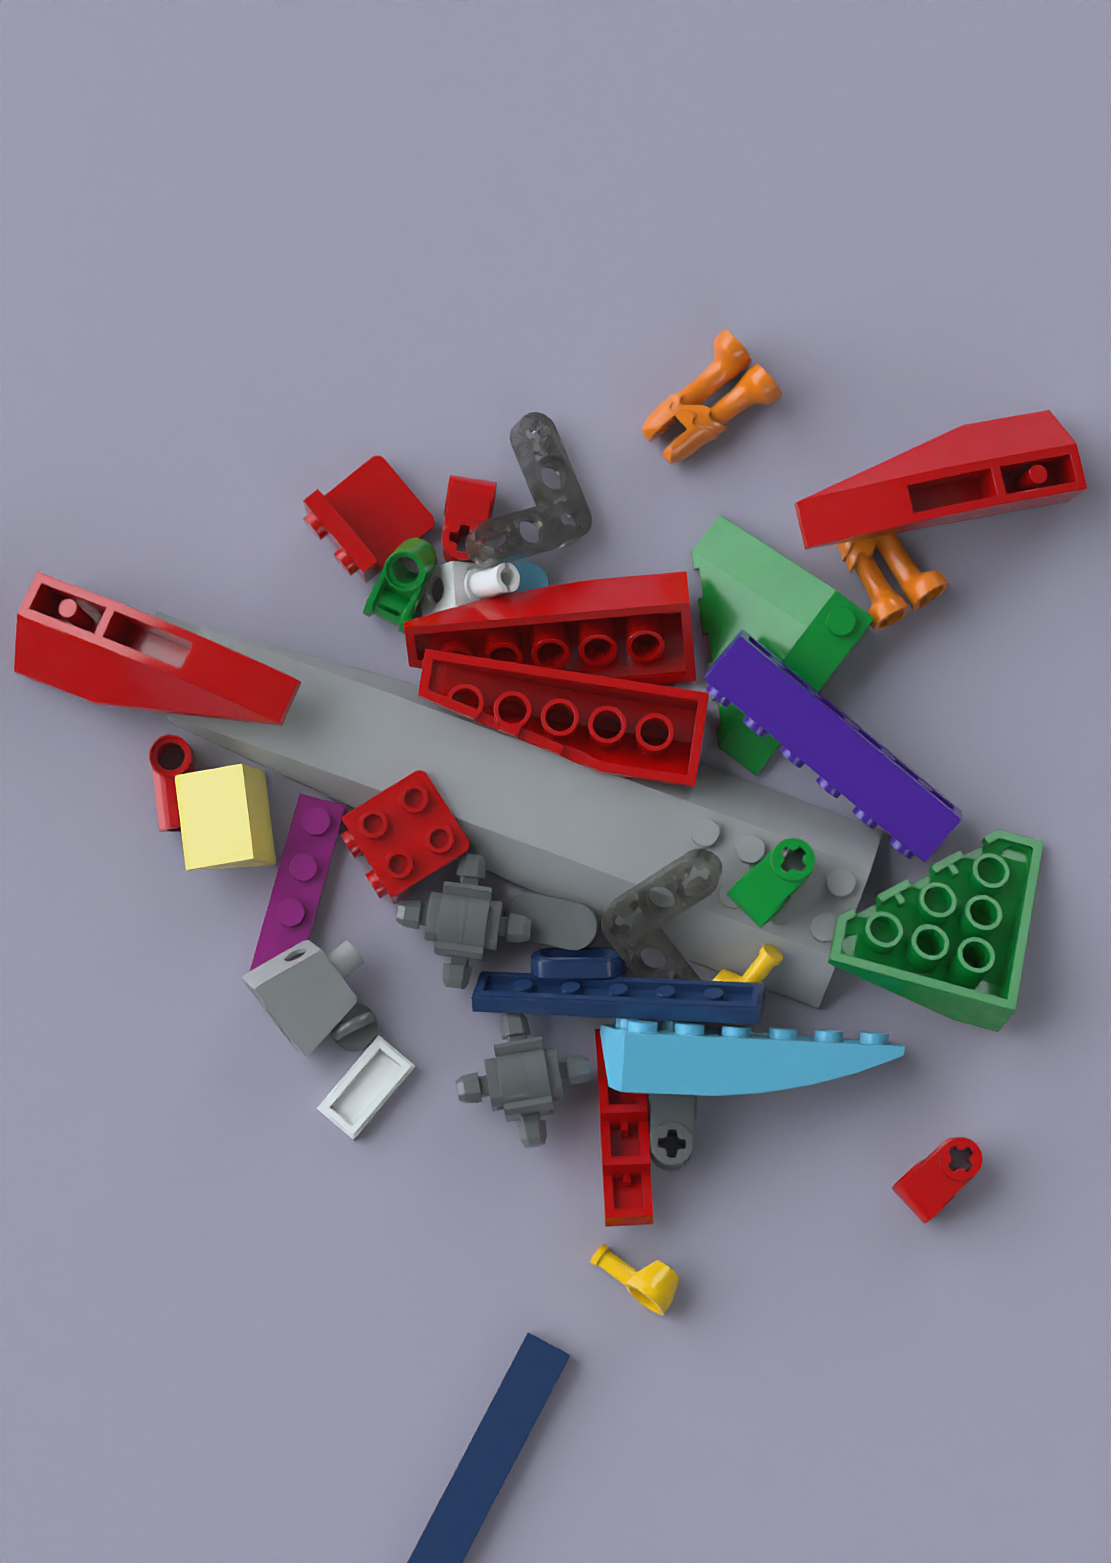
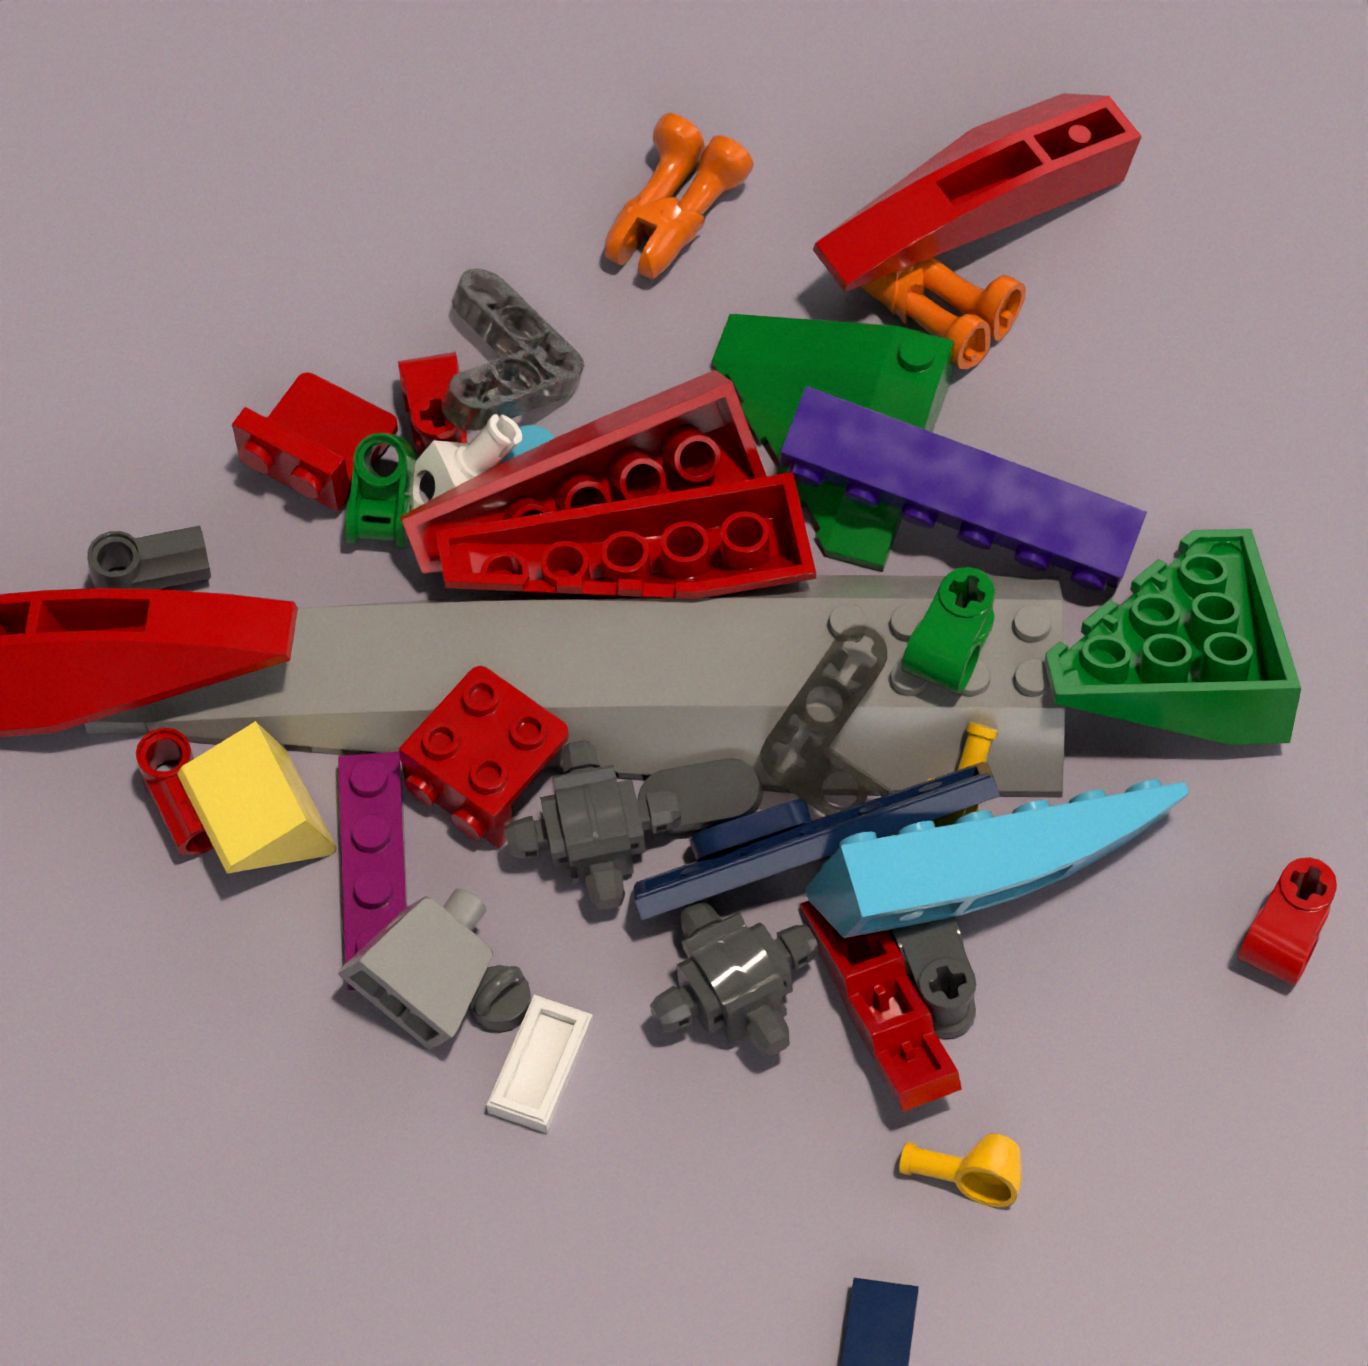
camera: 15 degrees left, 20 degrees down
(216, 583) = (149, 560): none -> dark grey piece

